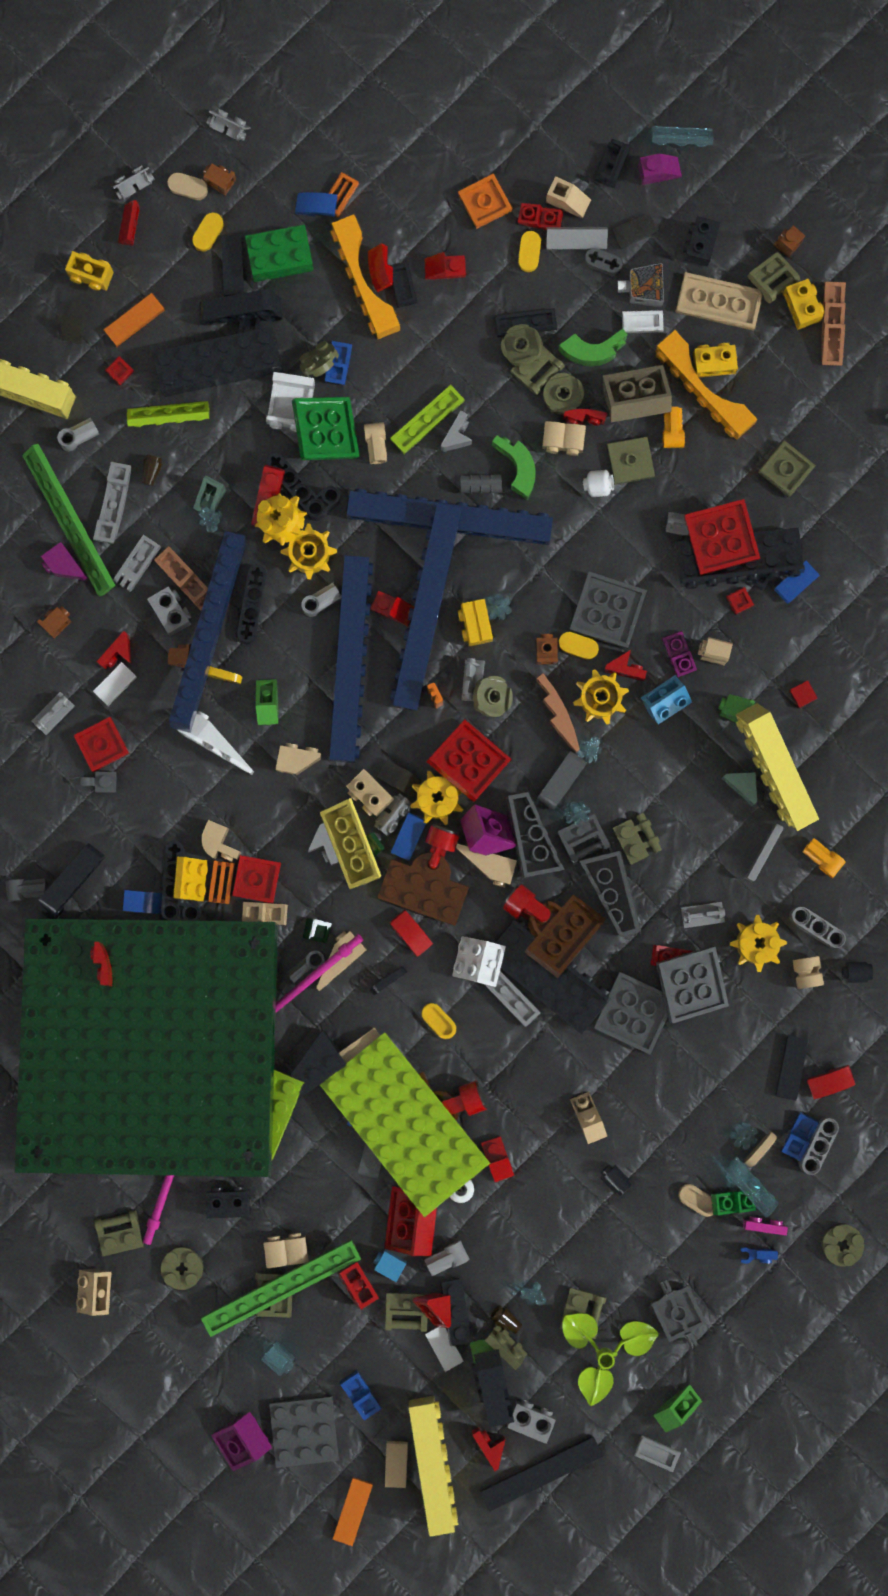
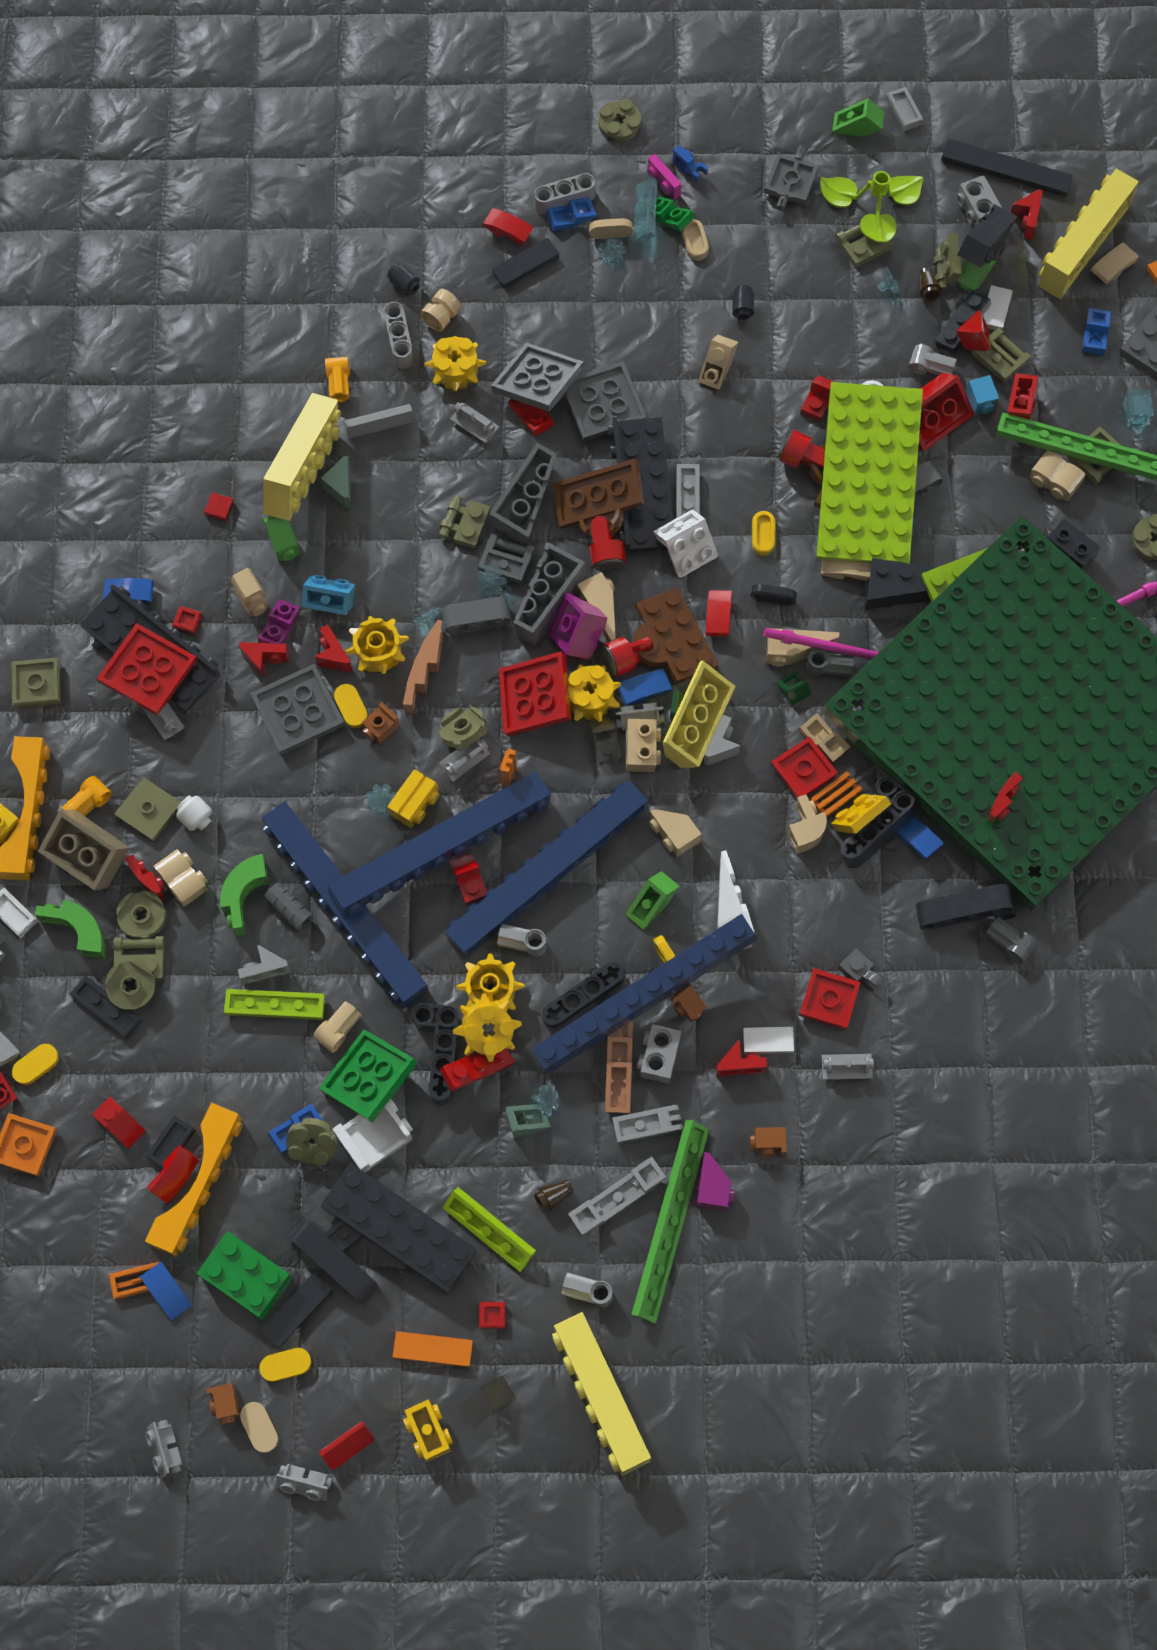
camera: 130 degrees left, 15 degrees down
(669, 618) = (258, 653): none -> red slope

